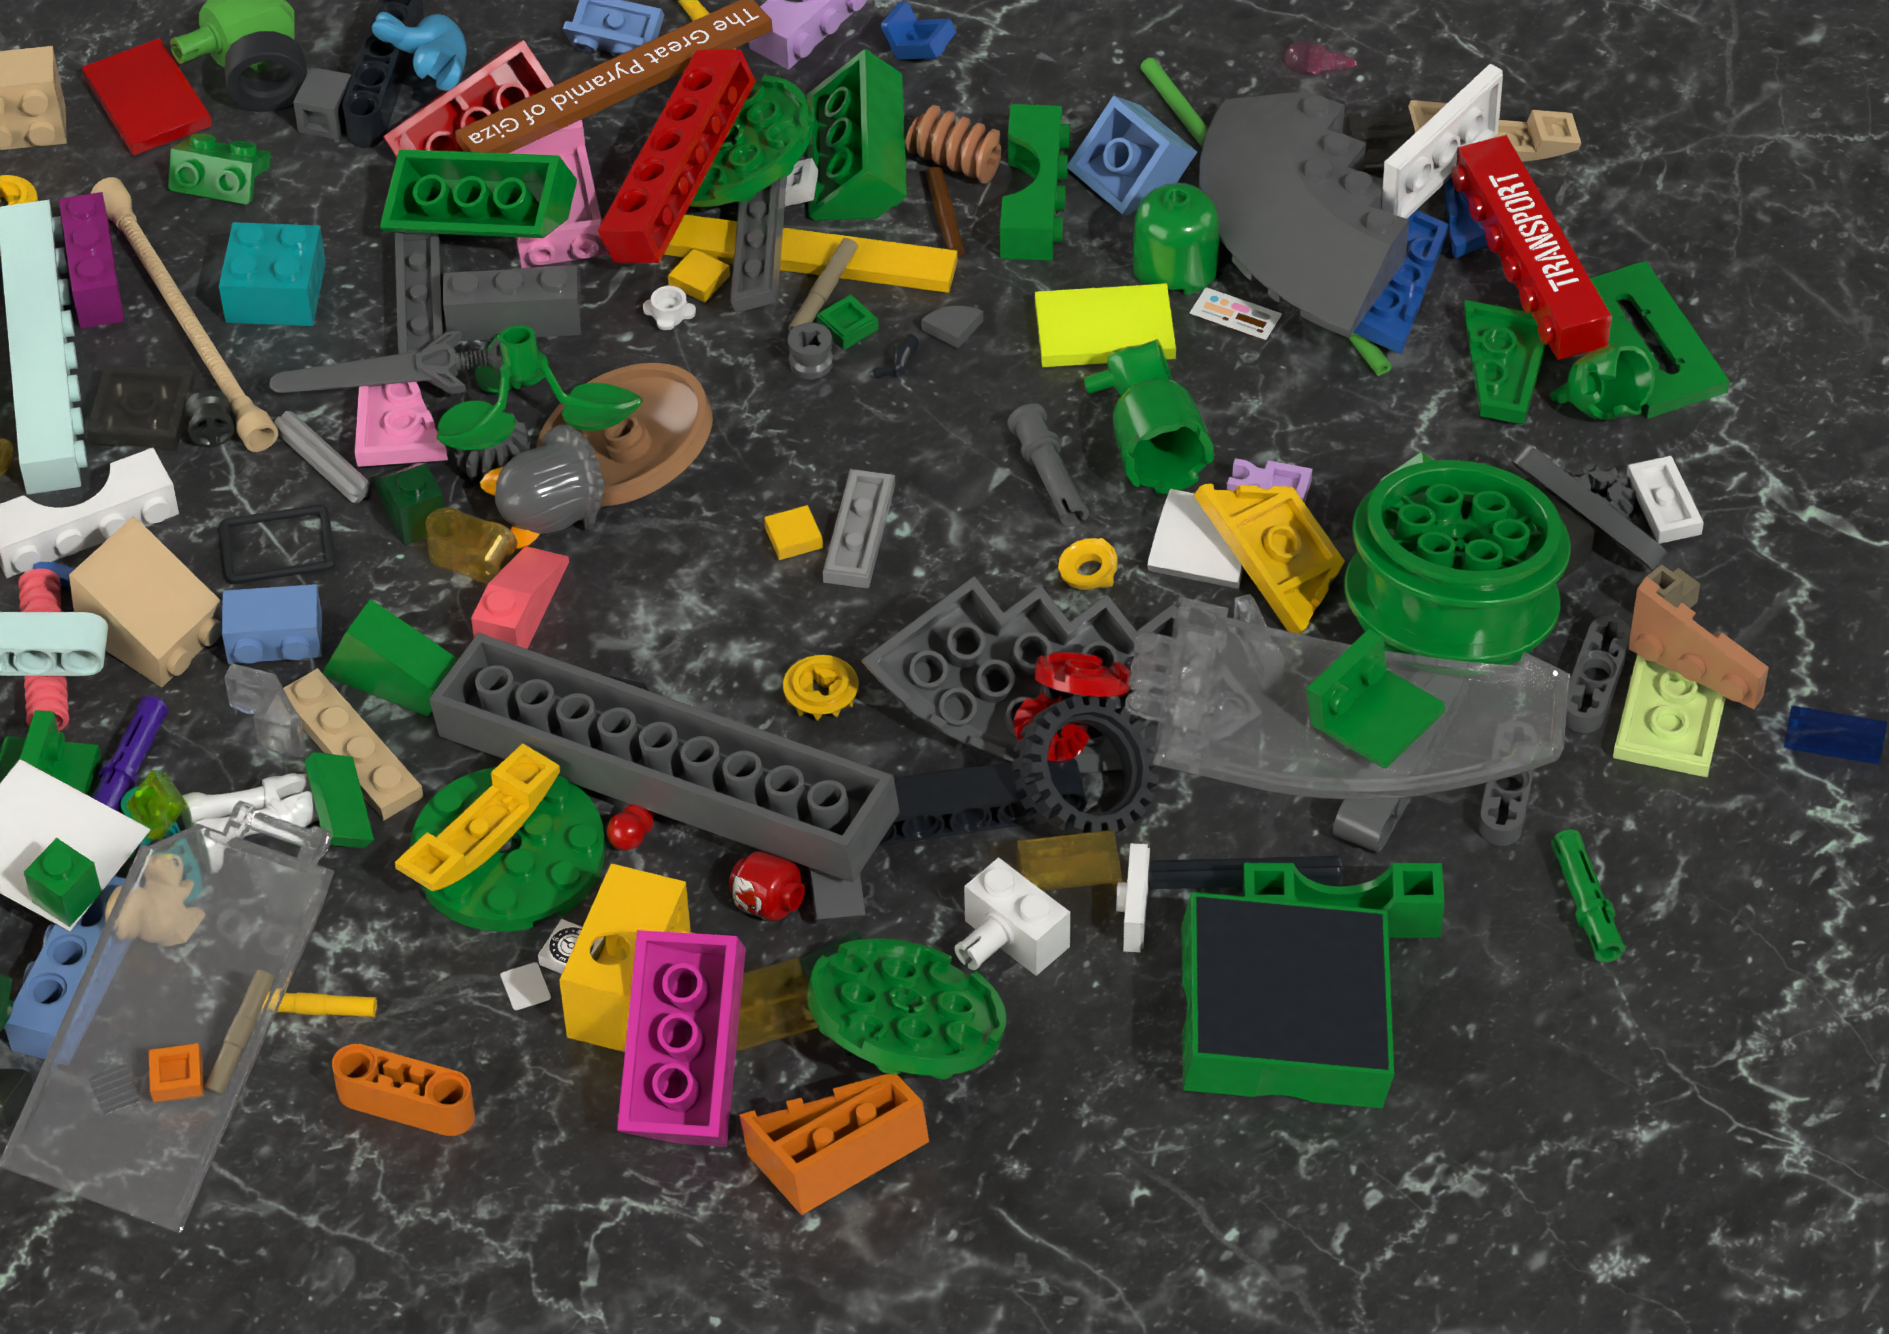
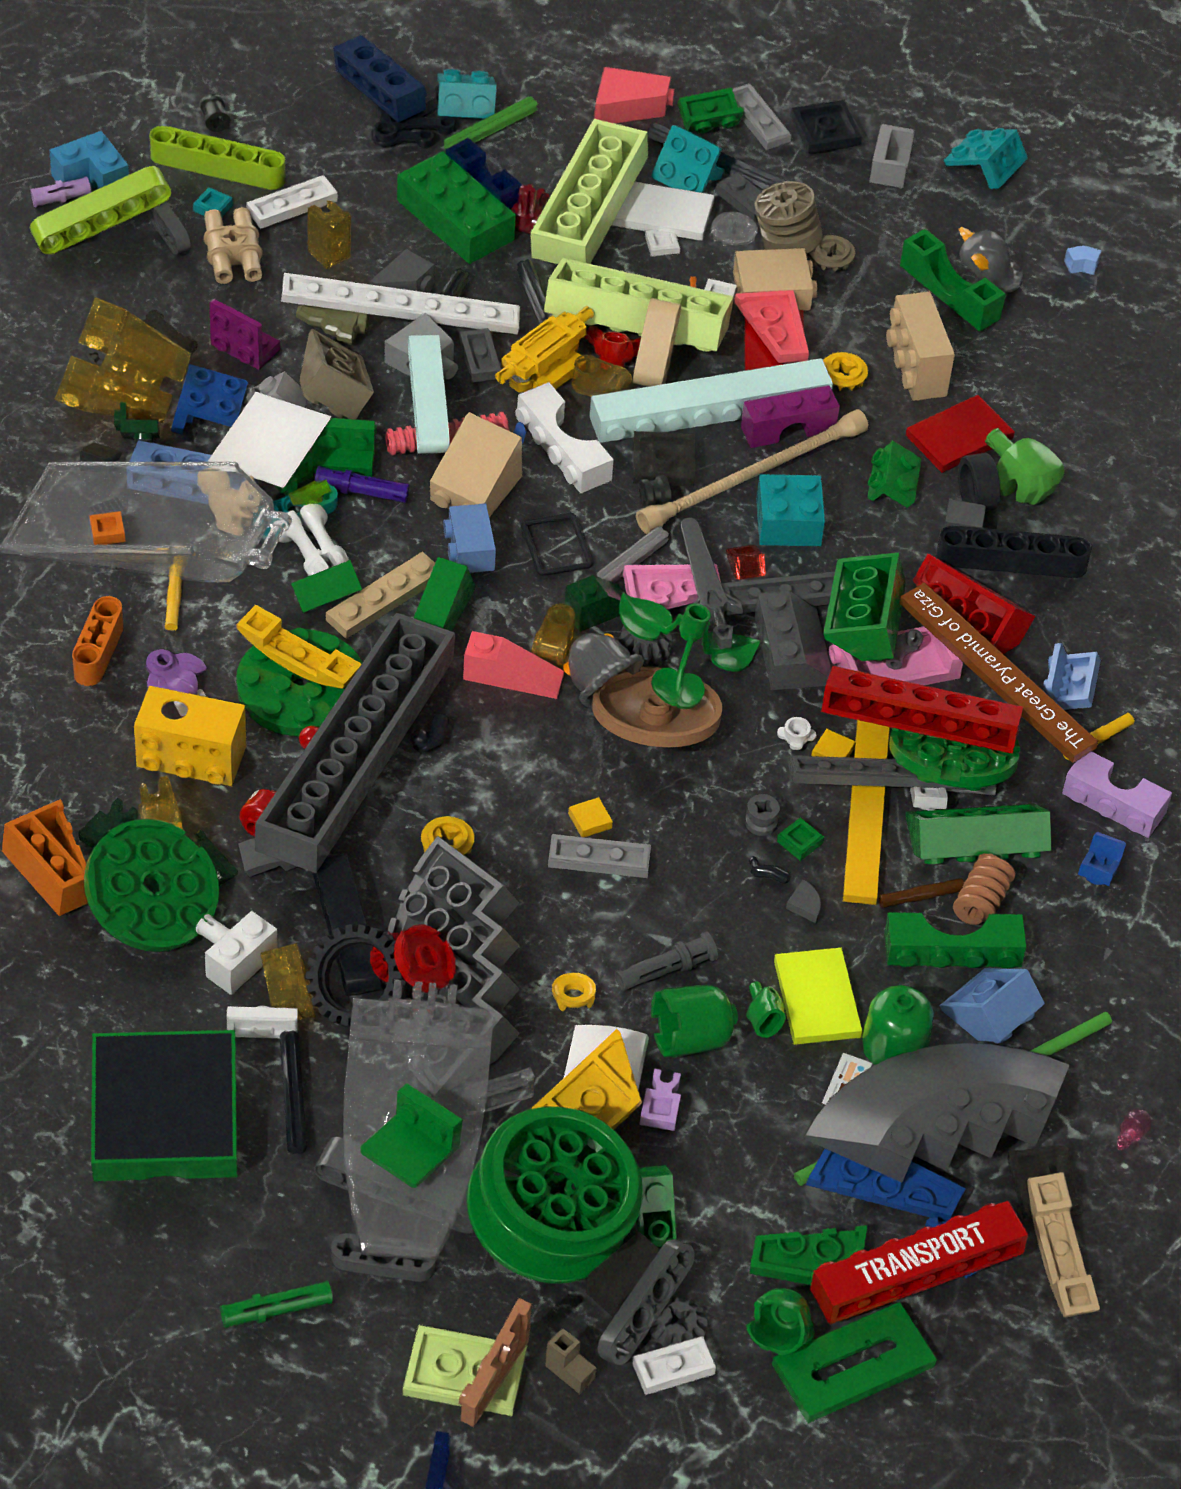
camera: 80 degrees right, 0 degrees up
(62, 882) = (228, 441): green brick -> none
(274, 716) = (399, 549): clear slope -> none
(346, 337) = (746, 561): none -> clear red slope
(435, 41) = (1021, 574): dark azure piece -> none
(475, 1001) = (177, 674): none -> medium lavender plate
(682, 1037) = (114, 761): dark pink slope -> none
(765, 1086) = (101, 823): none -> clear green plate
(825, 283) = (825, 818): dark tan piece -> none
(1406, 890) = (255, 1140): green arch -> none
(1428, 156) = (996, 1180): white tile -> none
(1593, 657) = (486, 1303): dark grey beam -> none

